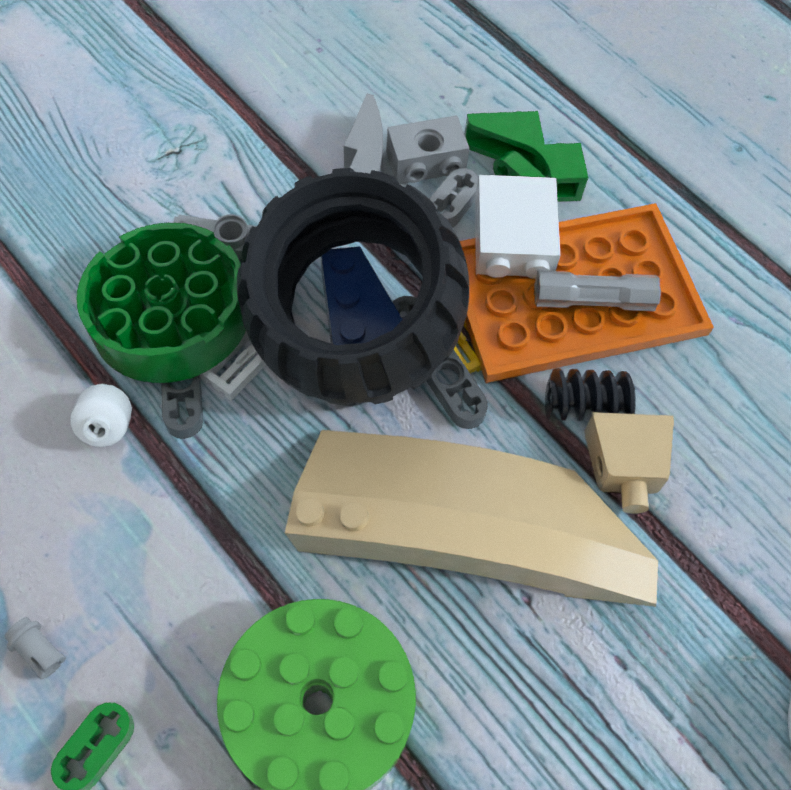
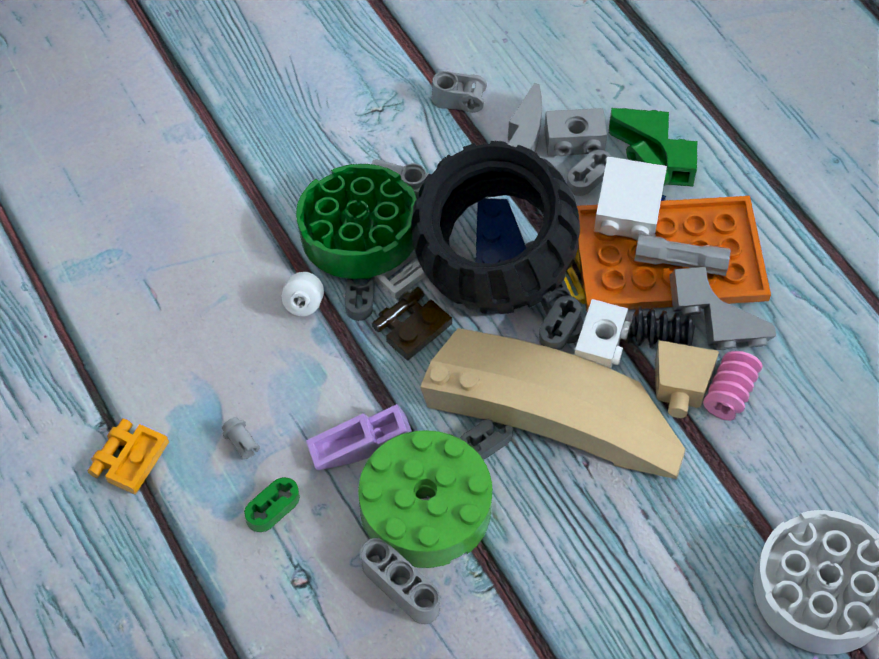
camera: 15 degrees right, 5 degrees down
(208, 620) = (357, 438): none -> lavender slope
(268, 116) = (456, 91): none -> light grey piece
(268, 440) = (418, 329): none -> dark brown plate
(394, 595) = (489, 443): none -> dark grey beam
(449, 403) = (566, 326): none -> dark grey beam
(521, 394) = (603, 321): none -> white brick
(665, 374) = (723, 322): none -> light grey arch
(697, 457) = (732, 384): none -> bright pink piece

